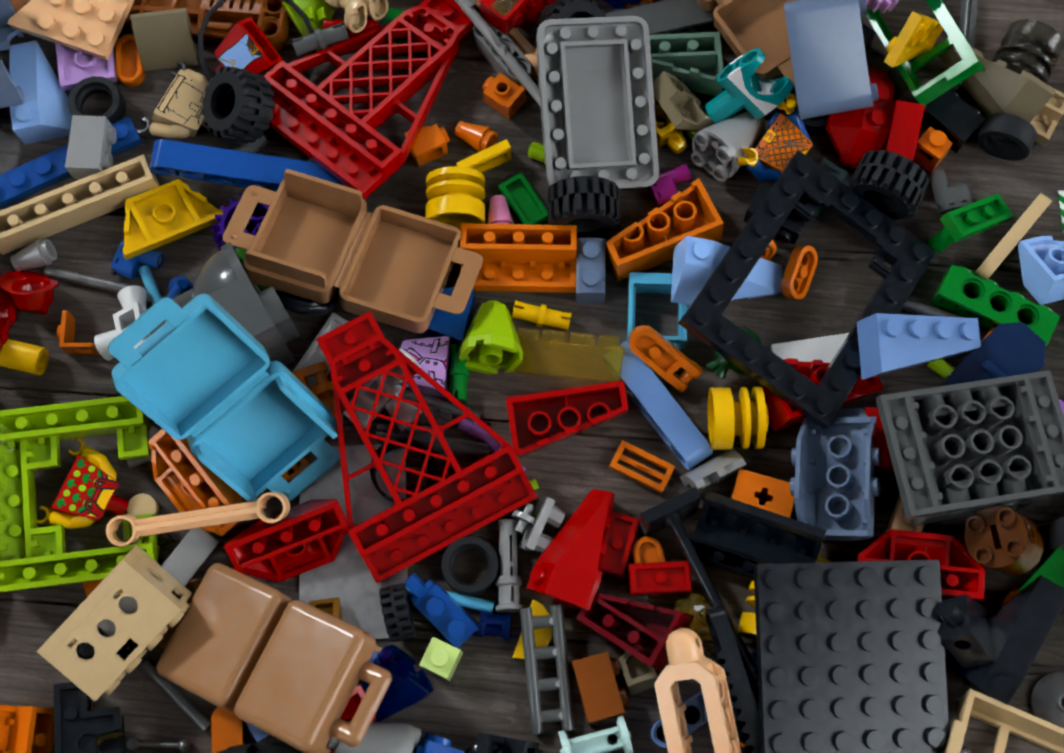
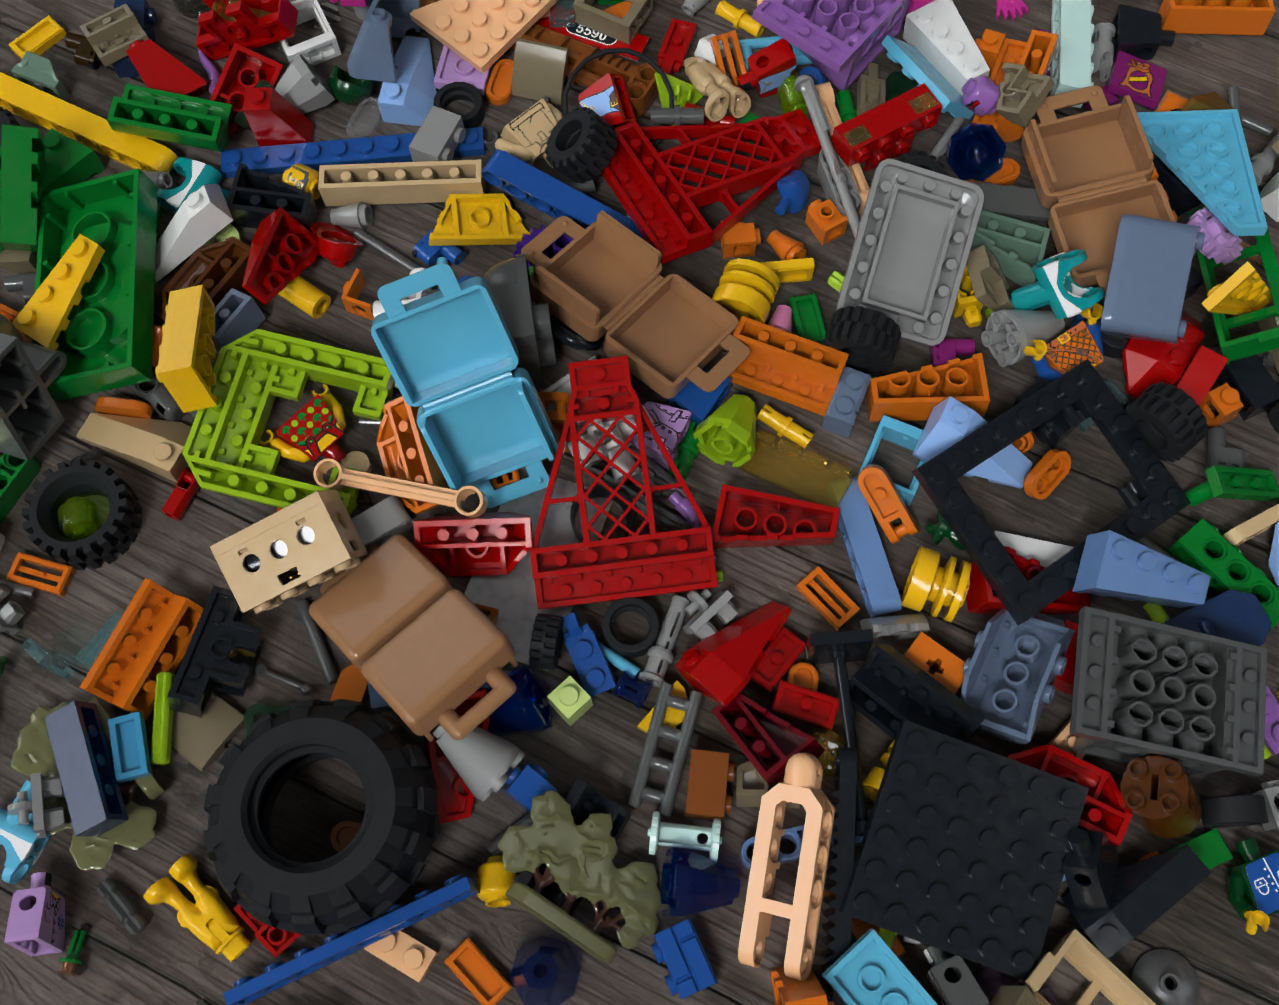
camera: 20 degrees right, 5 degrees down
(462, 77) = (793, 192): none -> blue piece

